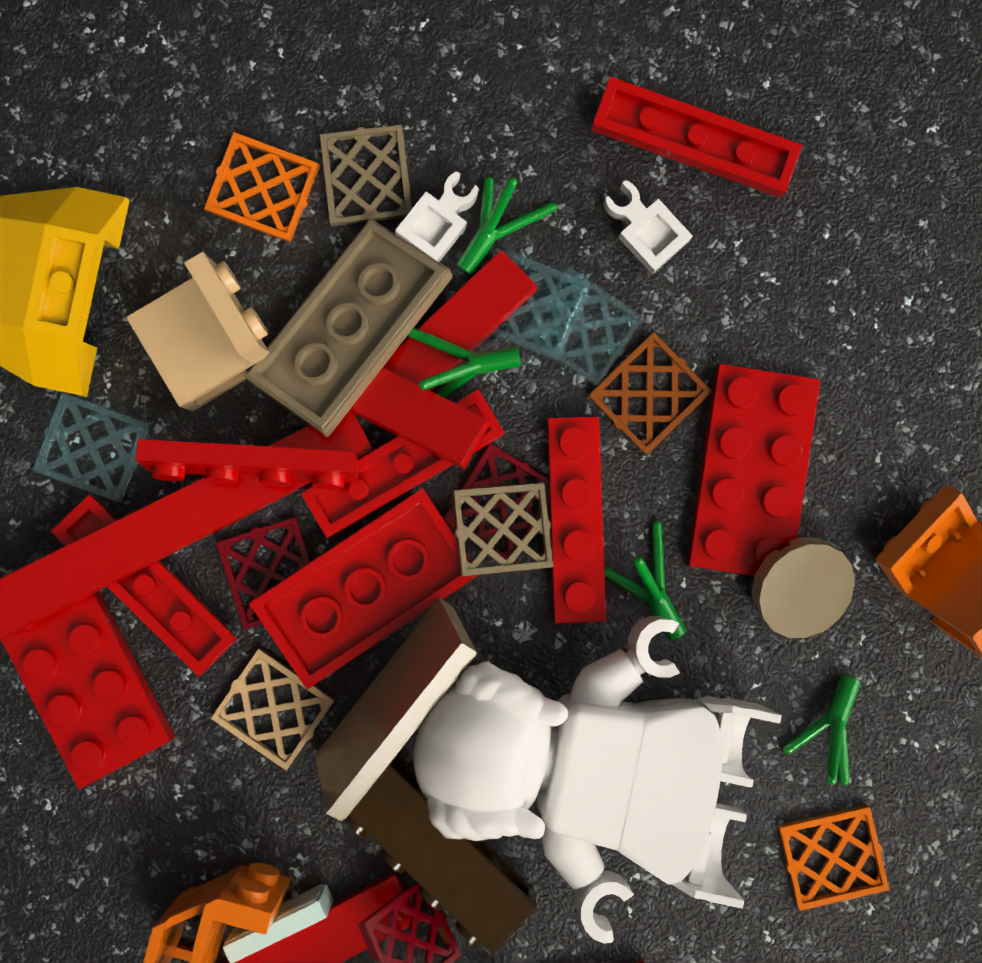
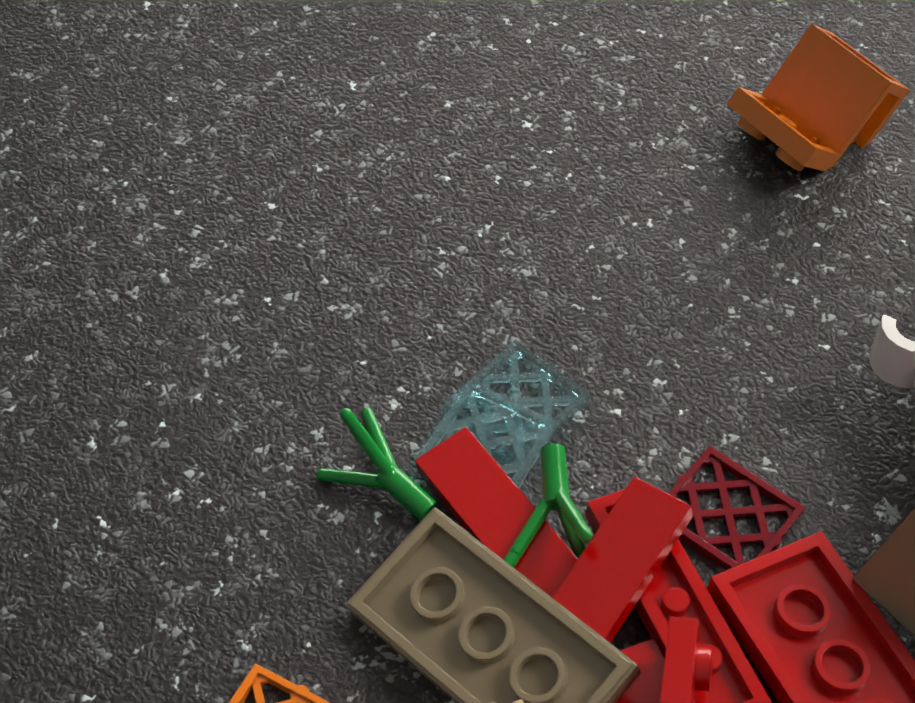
camera: 85 degrees left, 35 degrees down
(362, 136) = (282, 654): dark tan window -> none
(435, 223) = (361, 529): white plate -> none
(462, 532) = (769, 538): dark tan window -> none
(576, 520) = (752, 434): red plate -> none
(651, 232) = (417, 314): white plate -> none
(655, 593) = (819, 356): green plant -> none
(678, 365) = (632, 325): dark orange window -> none
(696, 137) = (317, 265): red plate -> none
(752, 468) = (703, 266): red plate -> none
(803, 587) = (834, 229): dark tan tile -> none

